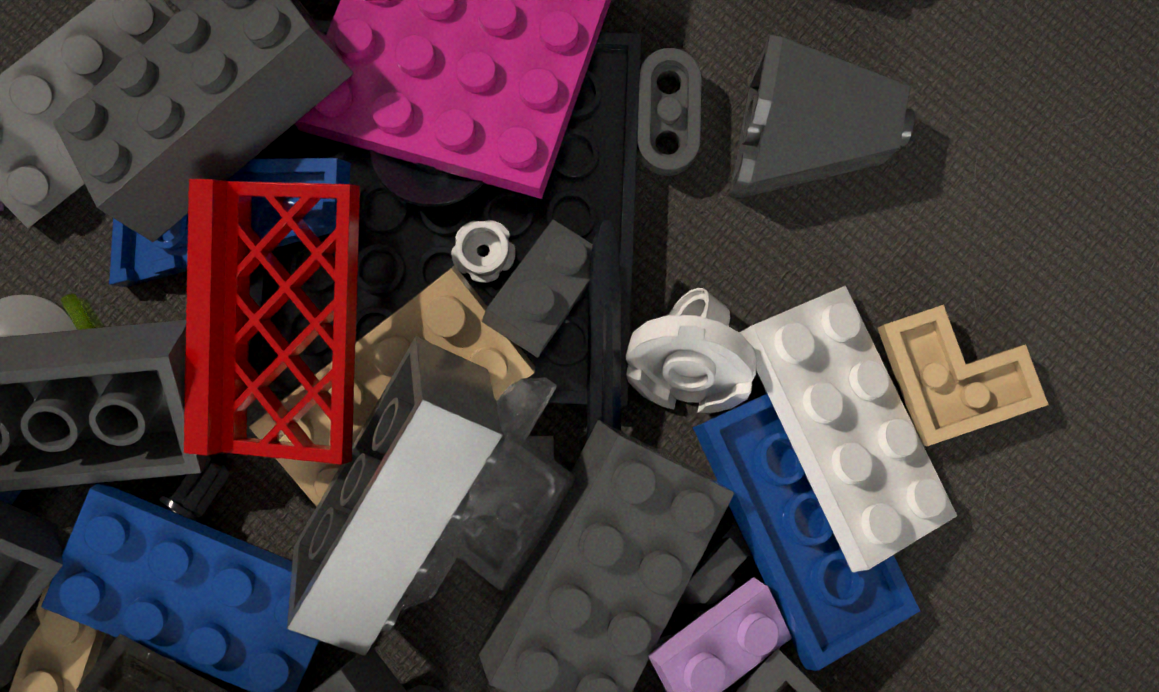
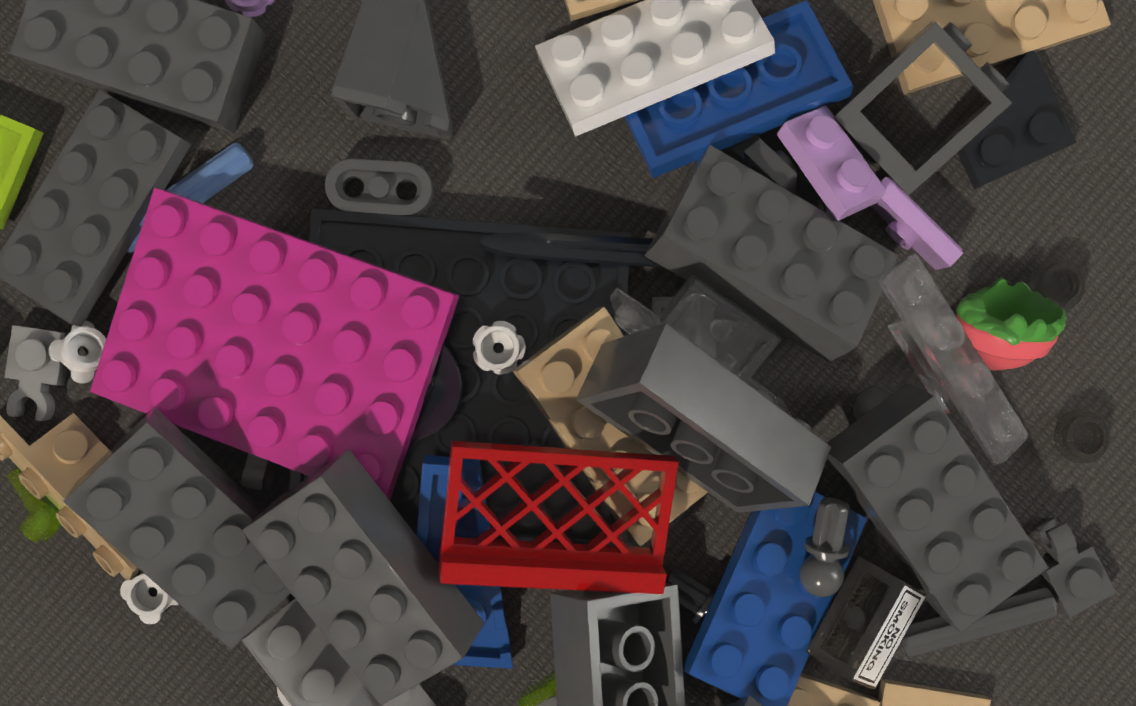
camera: 85 degrees left, 5 degrees up
(243, 655) = (822, 572): none -> dark grey axle
(542, 289) = (535, 296): dark grey plate -> none
(692, 356) = (593, 176): white tile -> none

